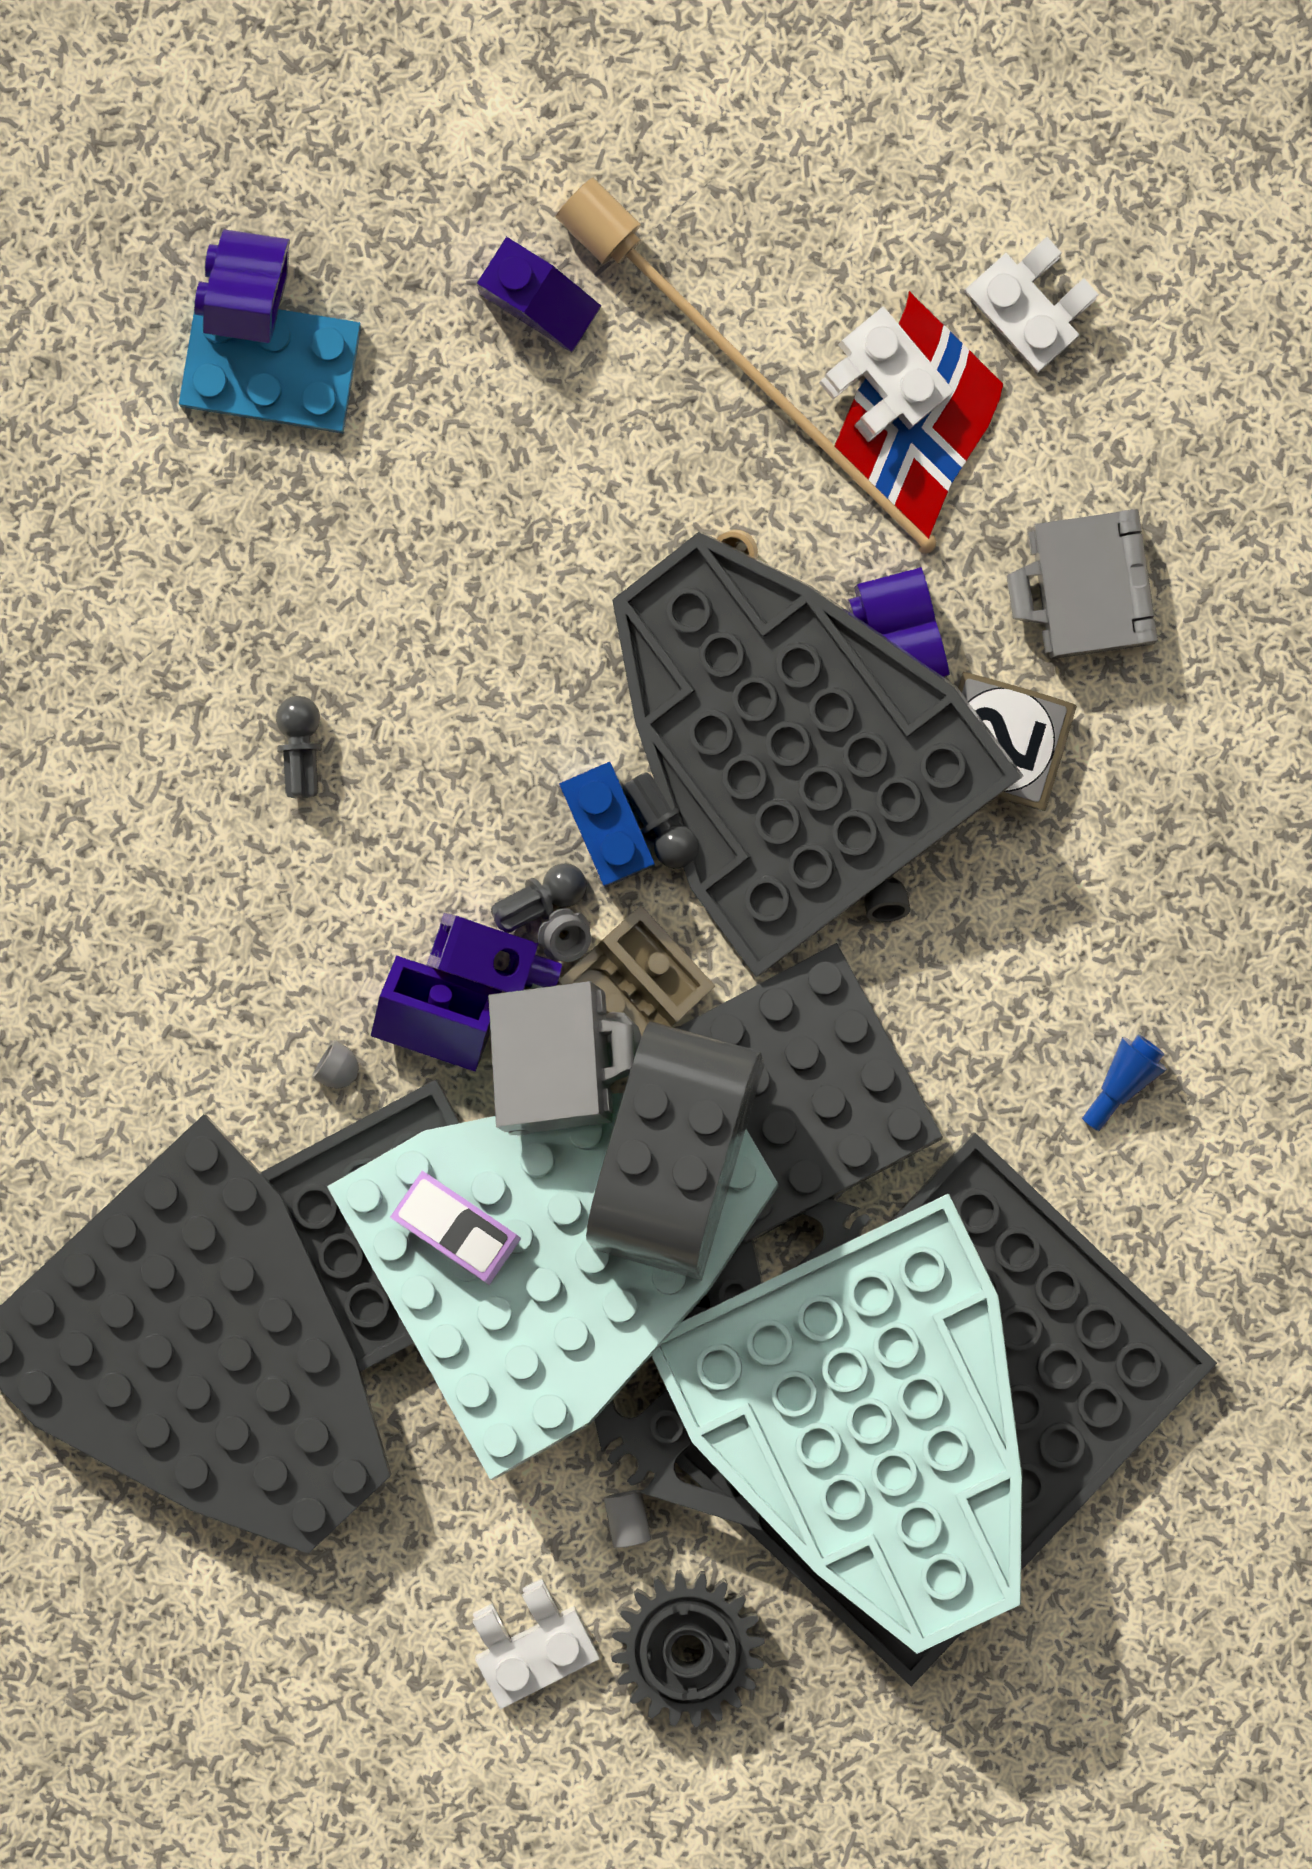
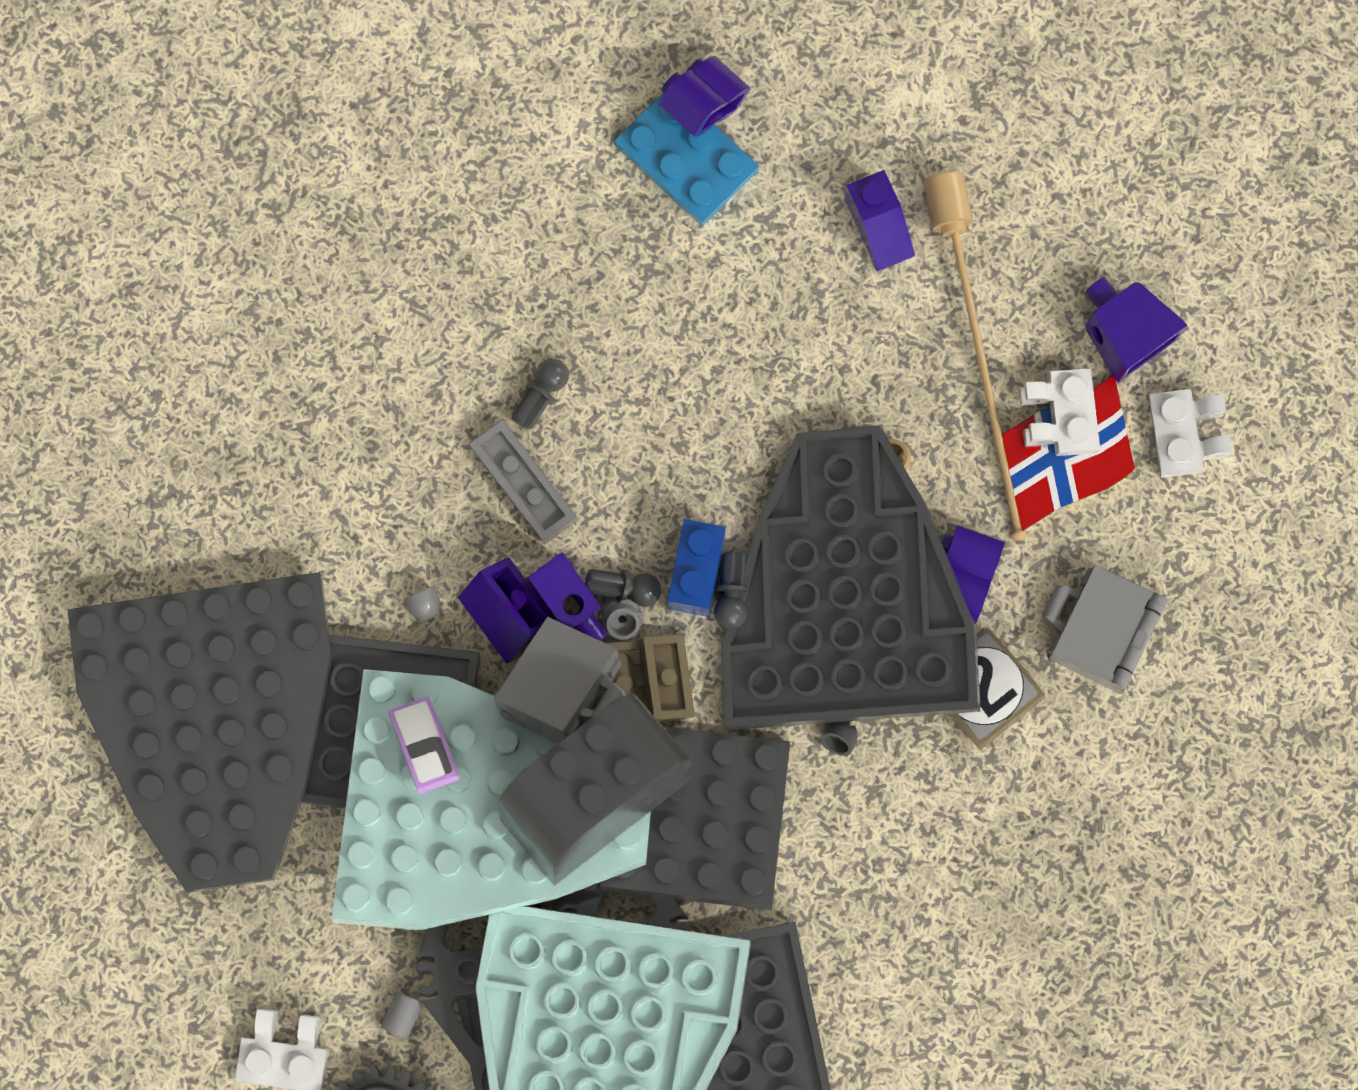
camera: 45 degrees right, 10 degrees down
(350, 858) = (523, 482): none -> light grey plate
(893, 228) = (1130, 326): none -> dark purple torso
(1131, 1070) = (921, 953): blue cone -> none

